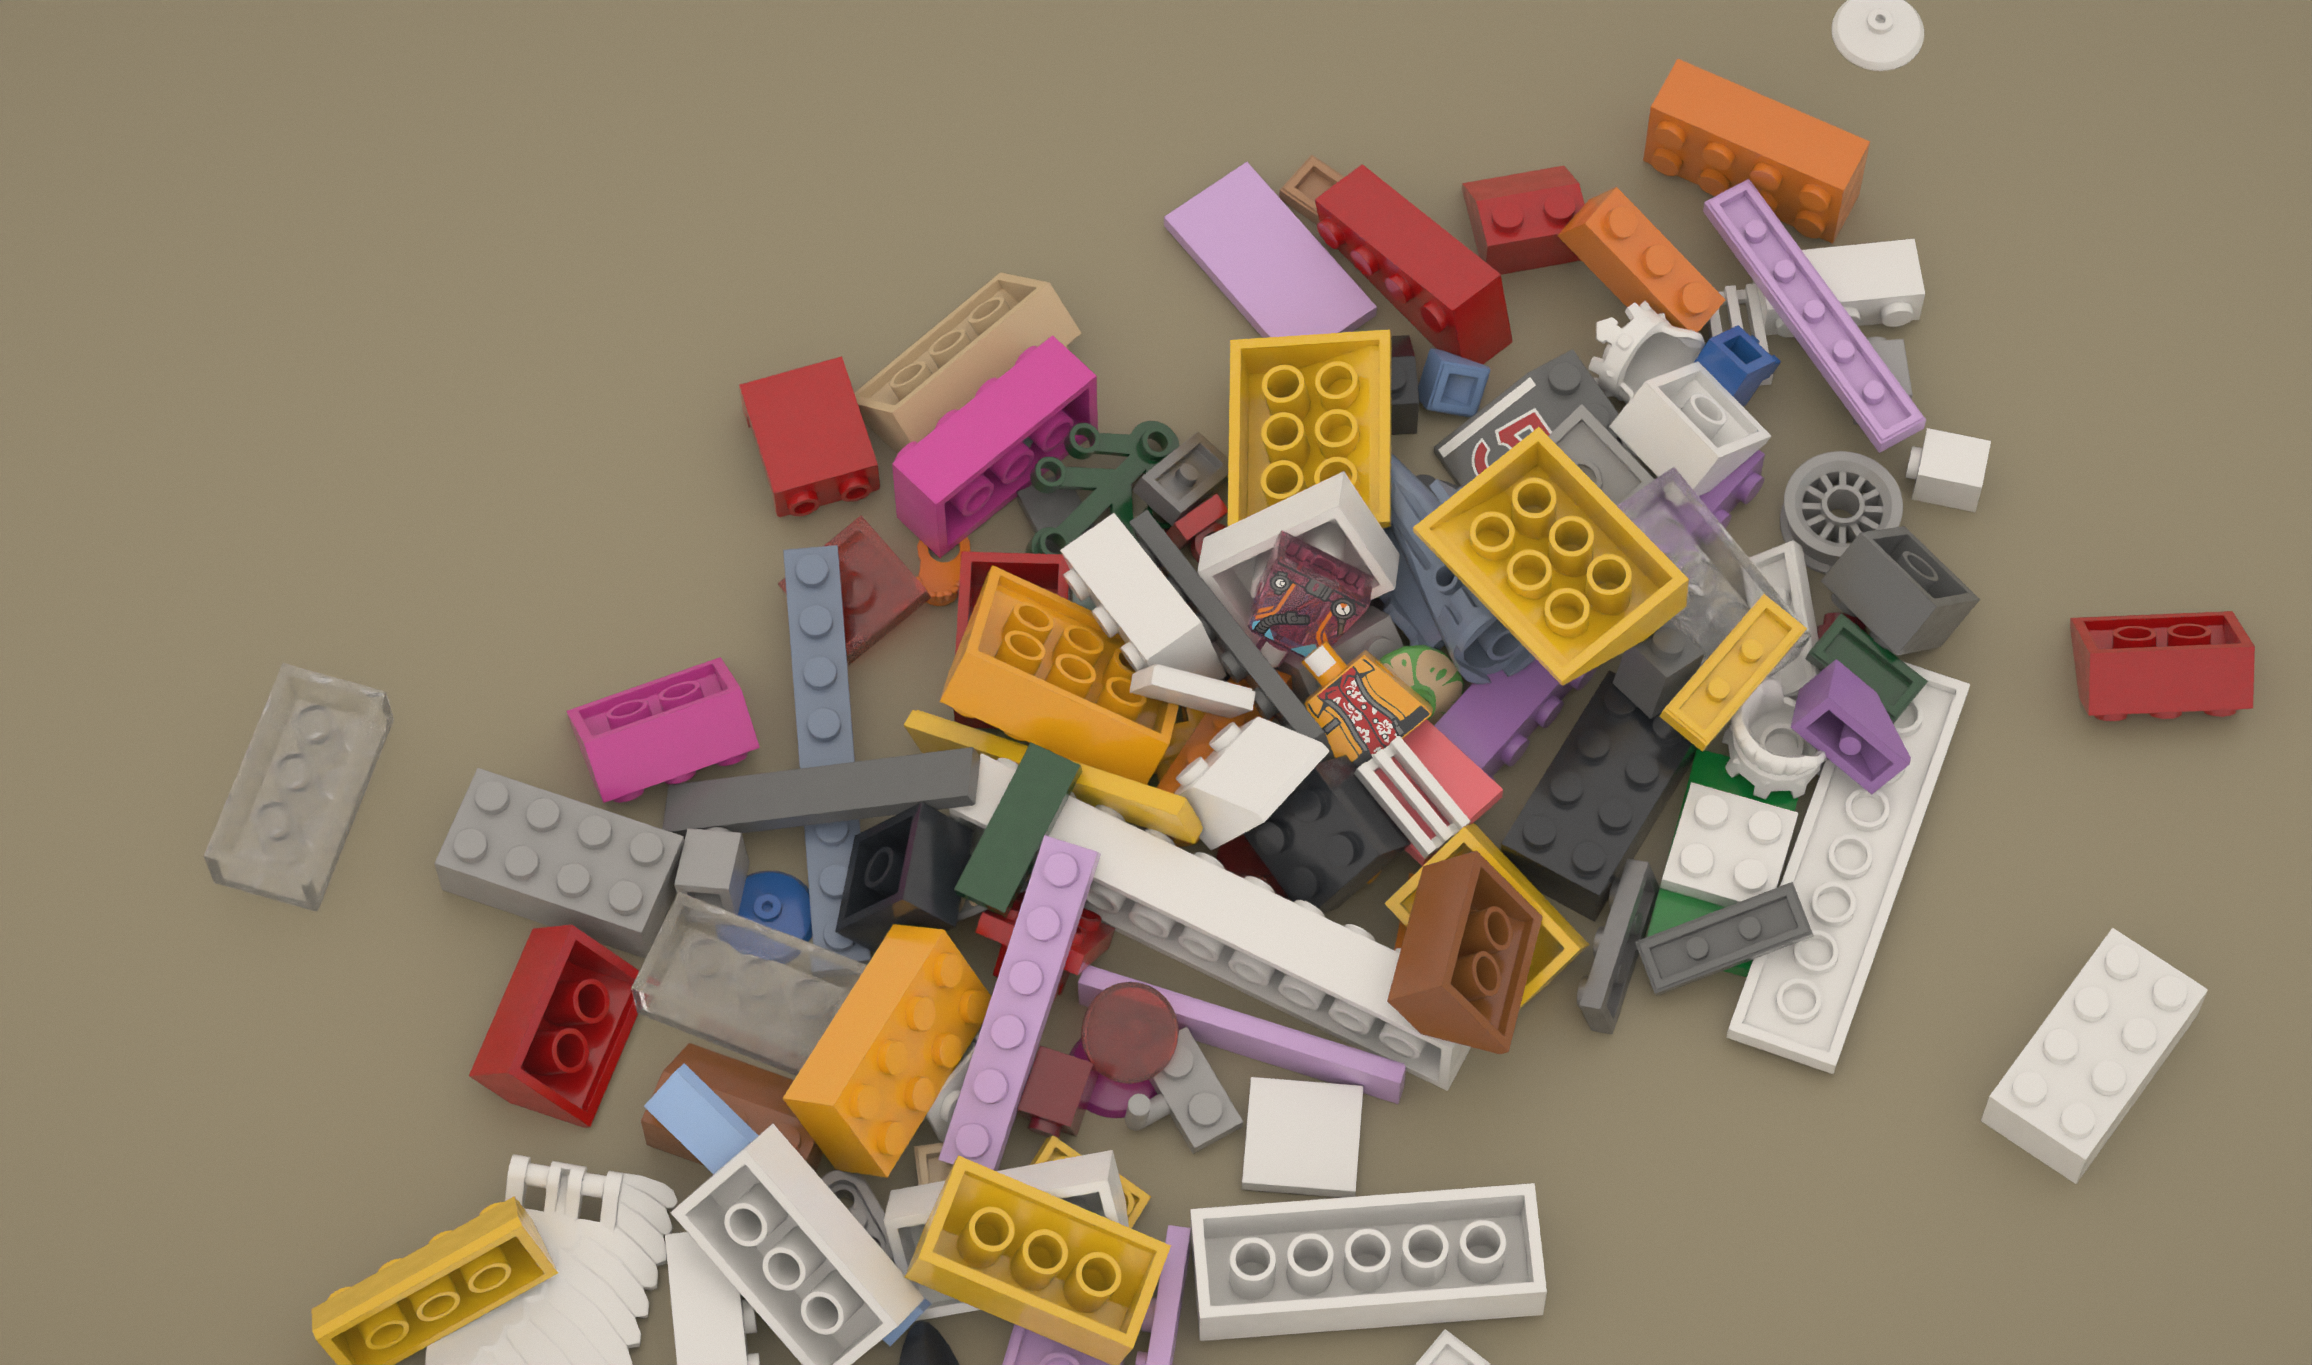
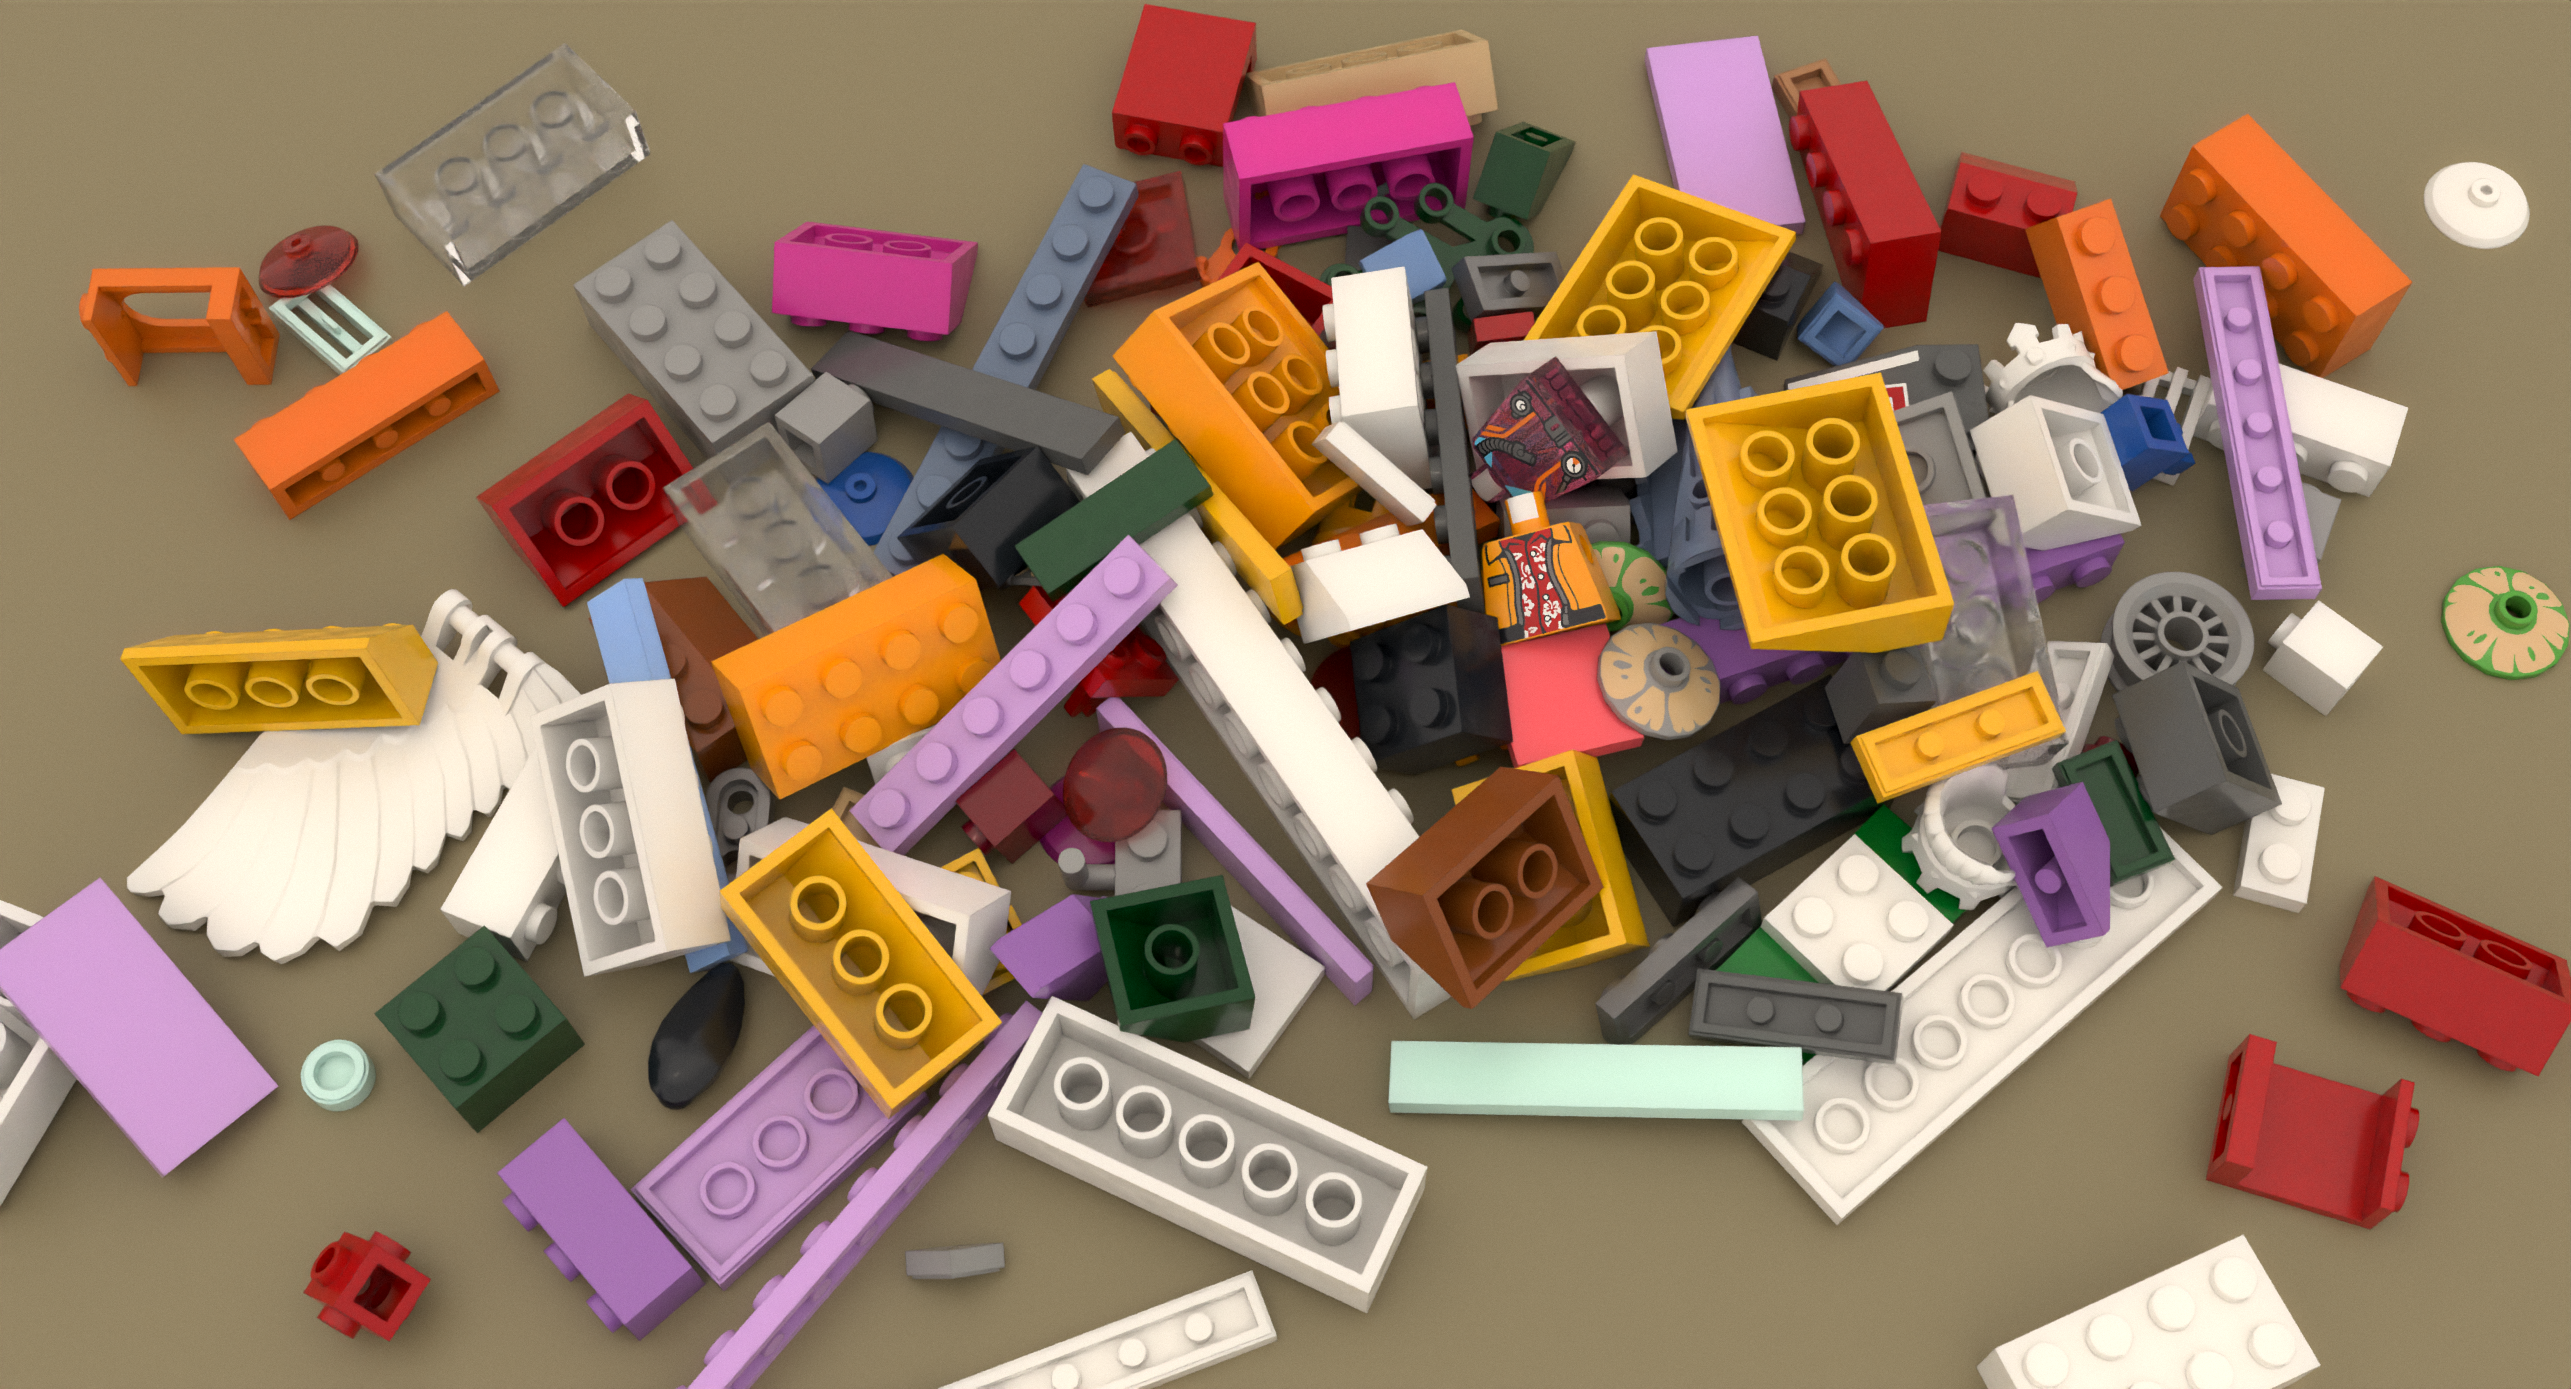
camera: 30 degrees right, 0 degrees up
(79, 1088) = (232, 324): none -> orange panel
(172, 959) = (307, 261): none -> clear red piece
(229, 1023) = (378, 337): none -> light aqua tile
(323, 1056) = (367, 414): none -> orange brick
(1094, 503) = (1419, 261): none -> medium blue slope
(1130, 374) = (1522, 170): none -> dark green slope
(1176, 1168) = (1056, 952): none -> medium lavender slope
(1266, 1133) = (1175, 961): none -> dark green slope
(1427, 784) = (1529, 641): white tile -> none
(1486, 756) = (1648, 696): none -> tan dish
(1607, 1062) = (1596, 1080): none -> light aqua tile
(1994, 631) = (2281, 848): none -> white plate
(2063, 389) = (2493, 639): none -> tan dish
(2122, 835) = (2311, 1138): none -> red panel

